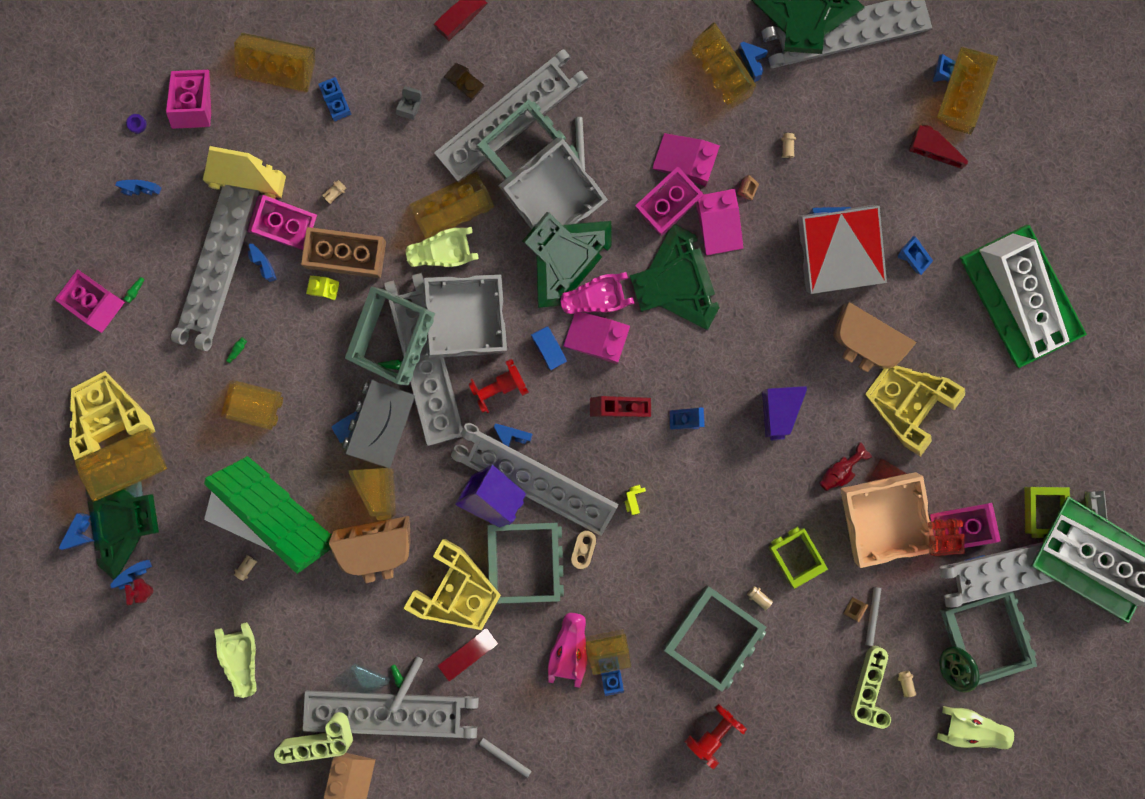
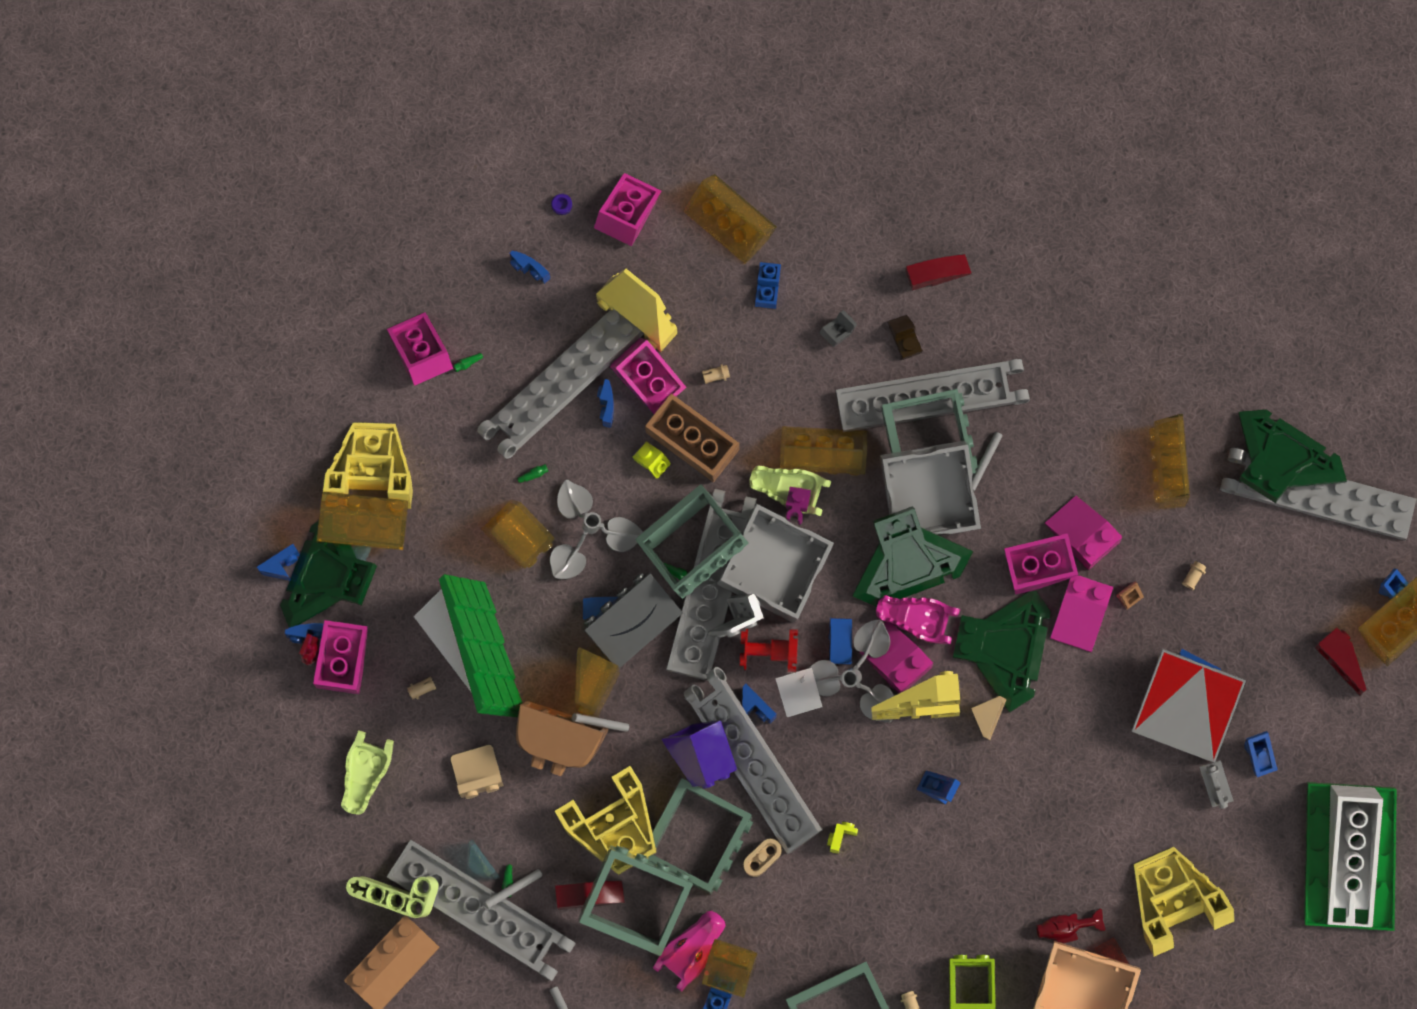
camera: 30 degrees right, 10 degrees down
(167, 581) = (341, 657): none -> dark pink slope
(283, 351) = (575, 501): none -> light grey plant
(326, 609) = (476, 771): none -> tan bracket
(399, 518) = (599, 722): none -> light grey bar
(455, 258) = (797, 502): none -> magenta plate
(465, 369) = (745, 613): none -> light grey bracket
(513, 670) = (623, 933): none -> sand green window
(539, 405) = (799, 696): none -> white sticker
(553, 385) = (871, 640): none -> light grey plant
(620, 406) = (878, 738): dark red slope -> none
(648, 354) = (933, 697): none -> light yellow wedge
(693, 342) = (988, 714): none -> tan slope
(750, 55) = (1205, 466): blue slope -> none
(781, 410) = (1037, 829): dark purple slope -> none
(869, 339) = (1165, 809): medium nougat hips -> none
(895, 298) = (1216, 784): none -> light grey hinge

